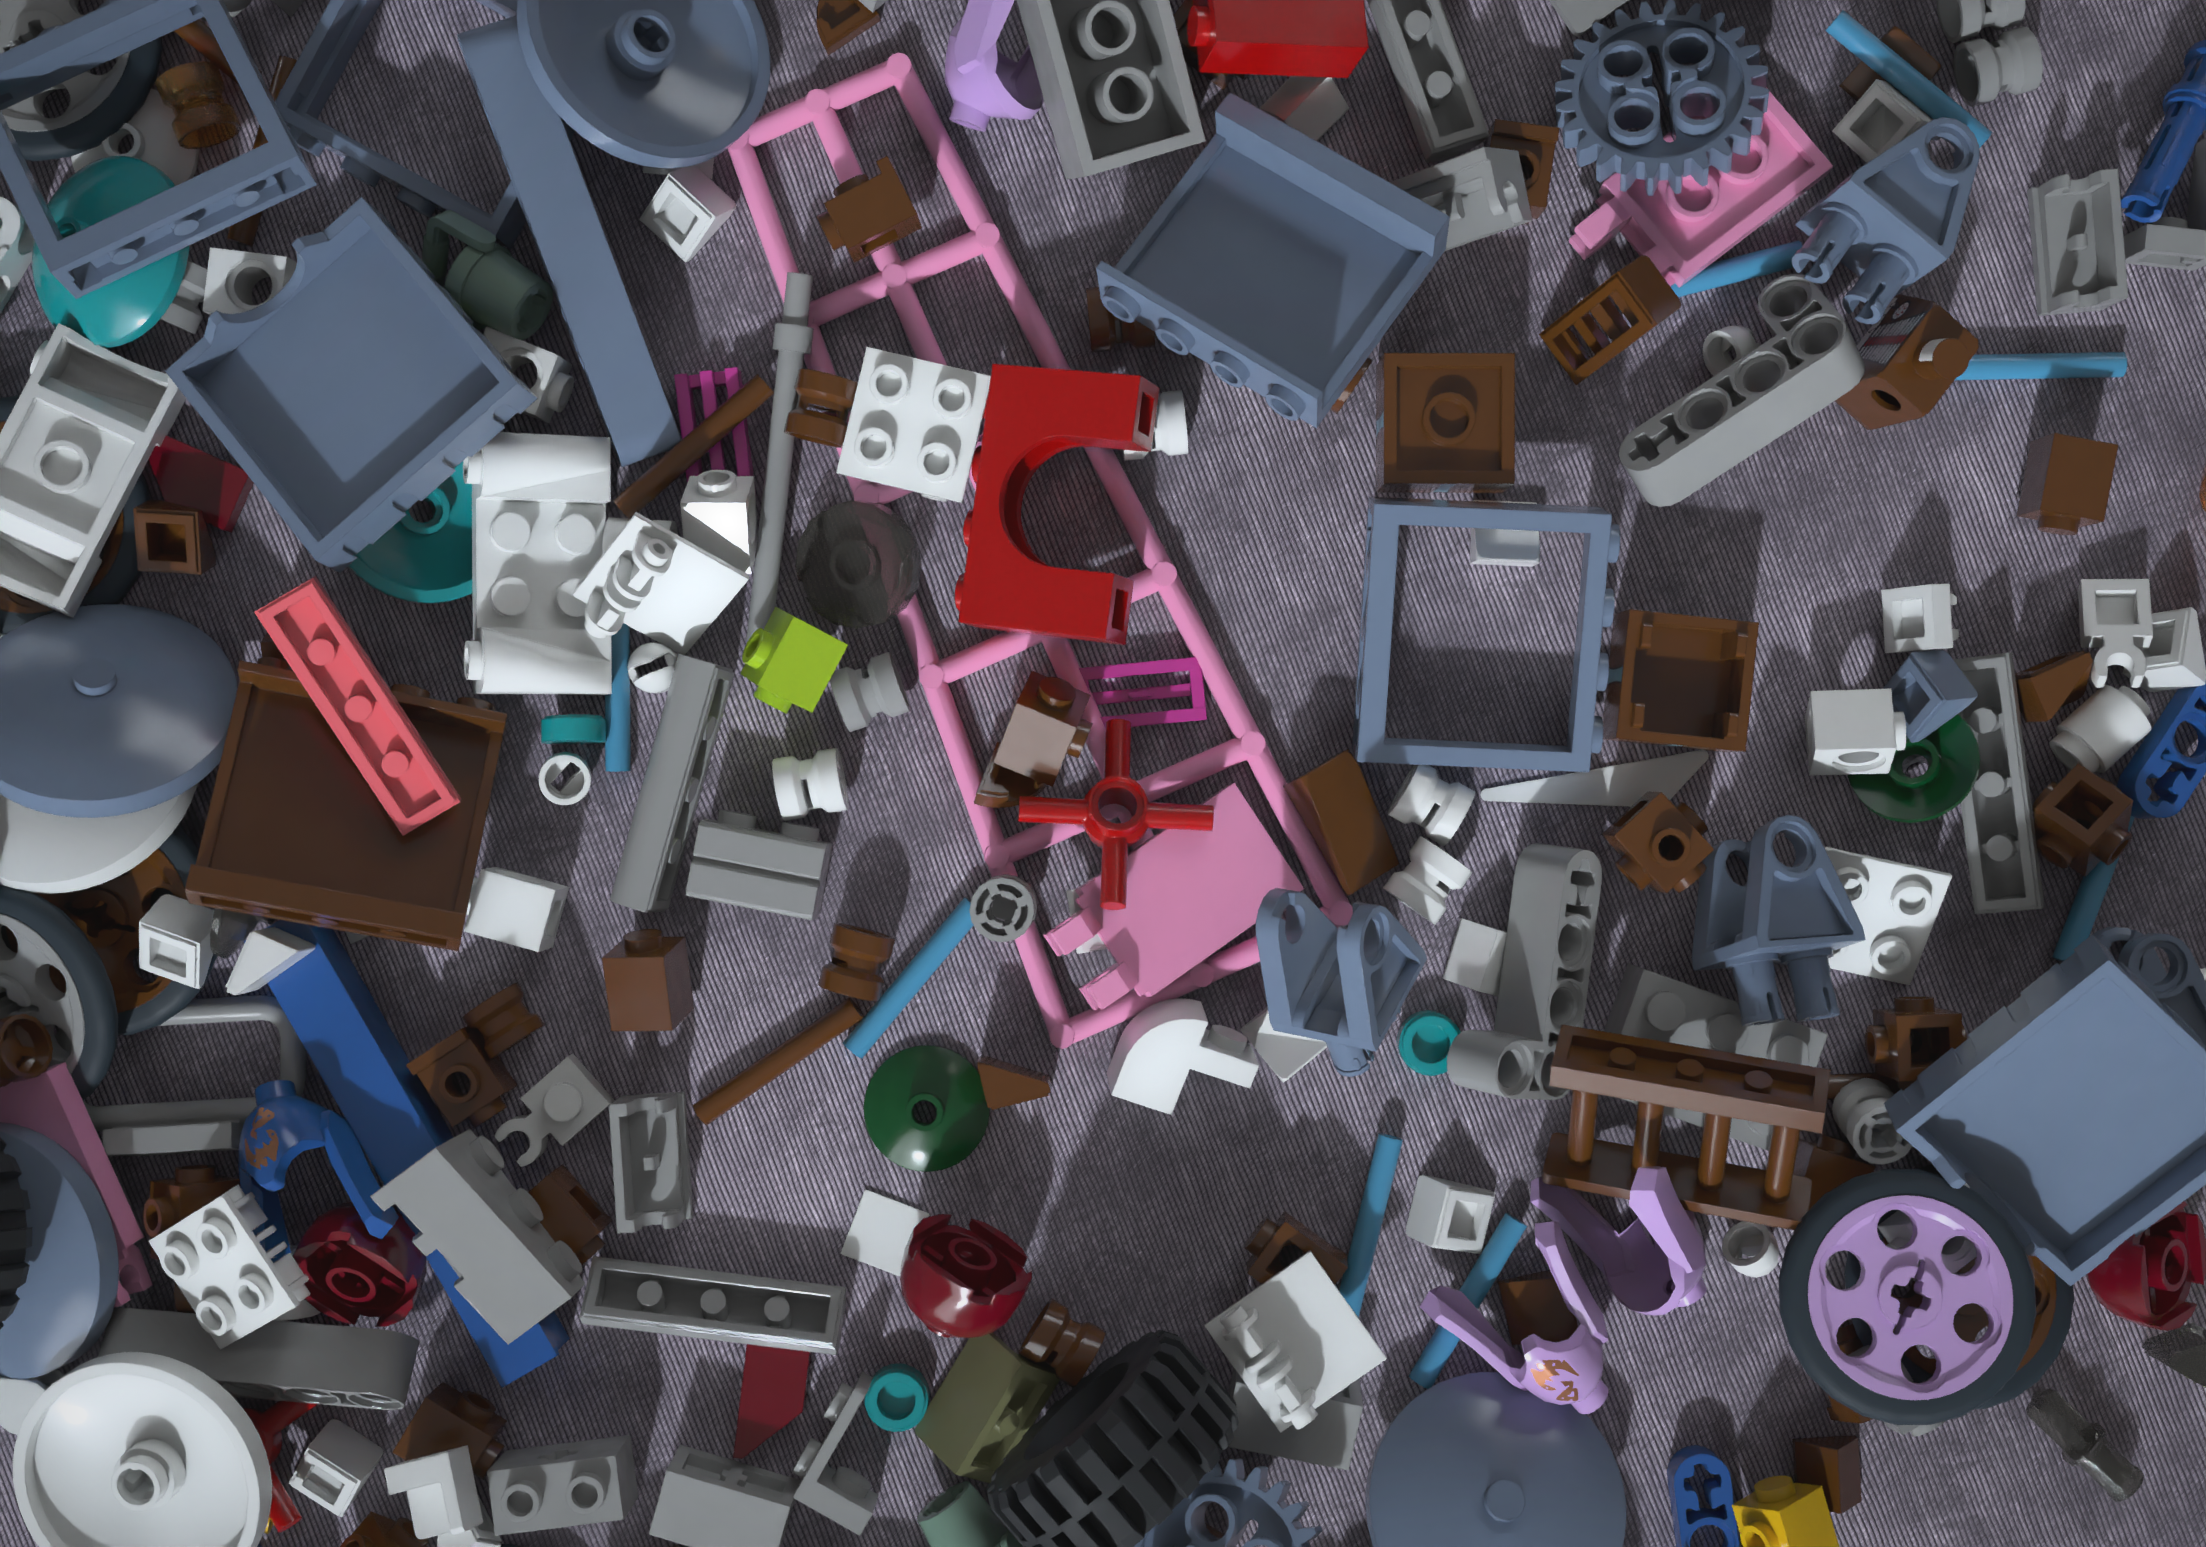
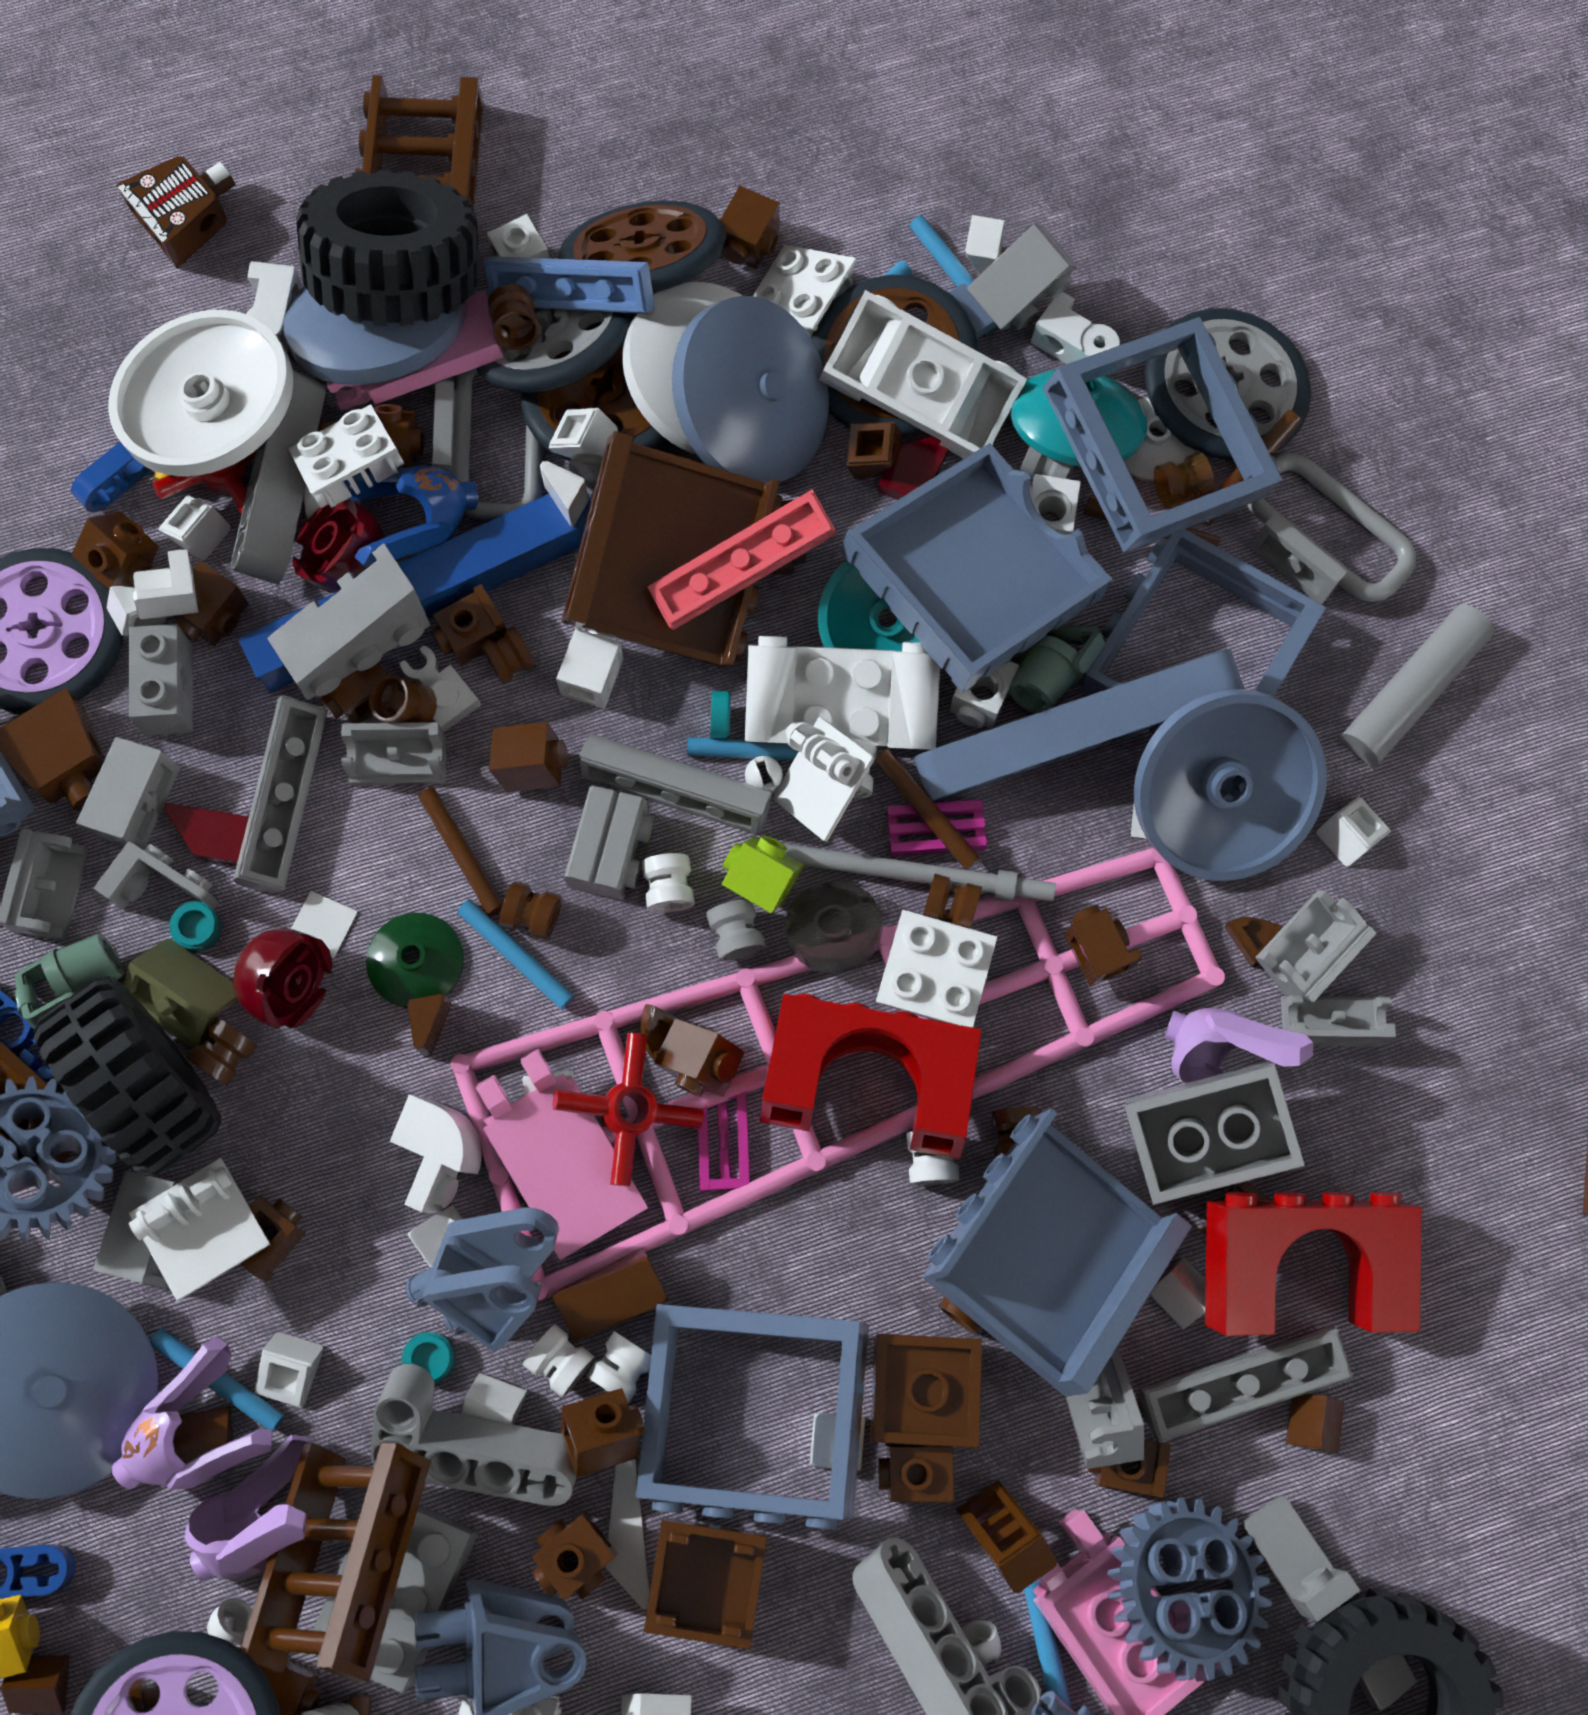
camera: 95 degrees right, 15 degrees down
(576, 785) = (679, 716): white hinge -> none
(580, 1155) = (402, 701): none -> reddish brown wheel
(687, 211) = (1105, 816): white slope -> none
(722, 516) = (871, 826): white brick -> none
(1010, 900) = (566, 1029): light grey wheel -> none
(1370, 1220) = (286, 1301): dark azure piece -> none
(1515, 818) = (601, 1431): none -> reddish brown brick
(1546, 431) = (917, 1473): none -> reddish brown brick

